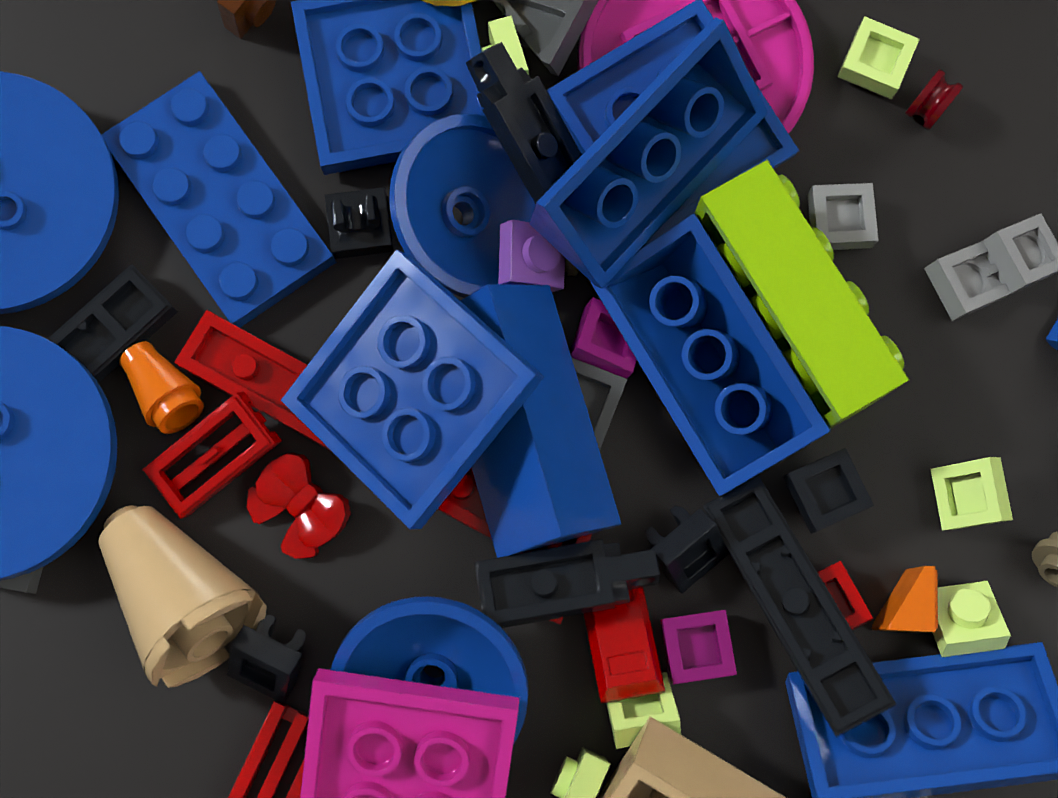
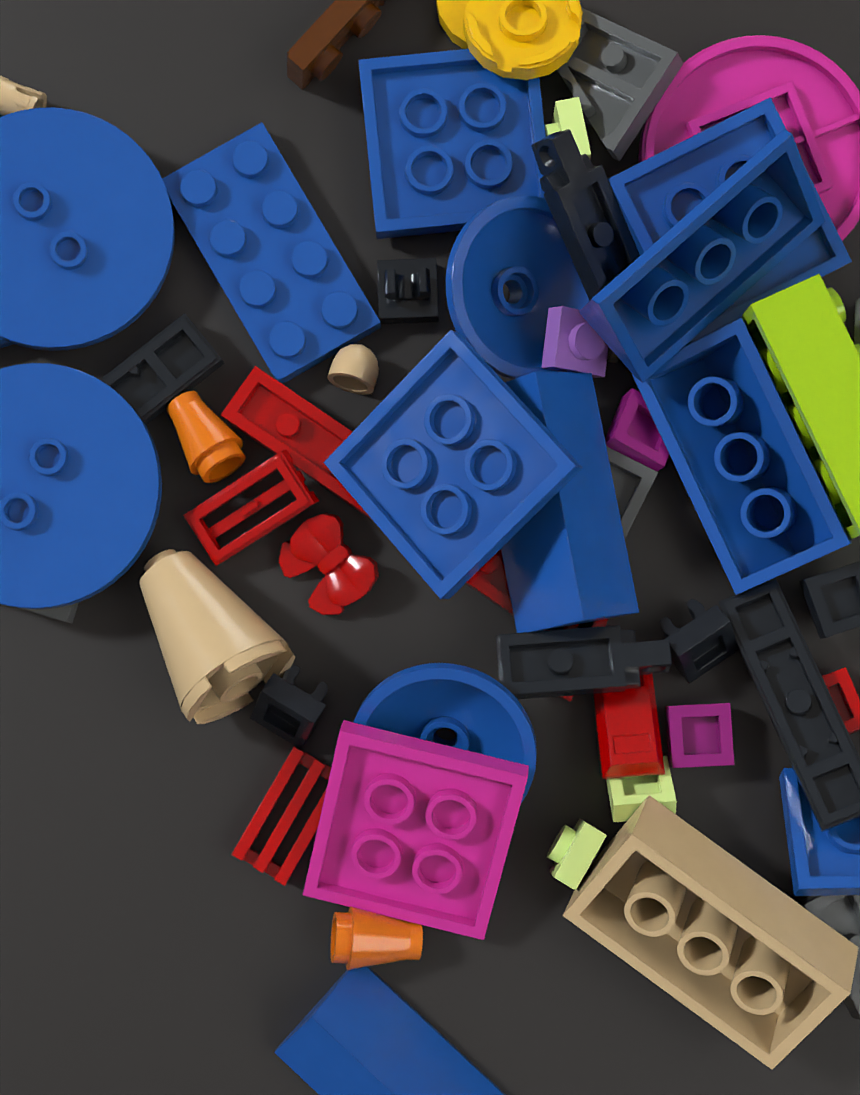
camera: 10 degrees right, 5 degrees up
(310, 305) = (354, 369): none -> tan hinge

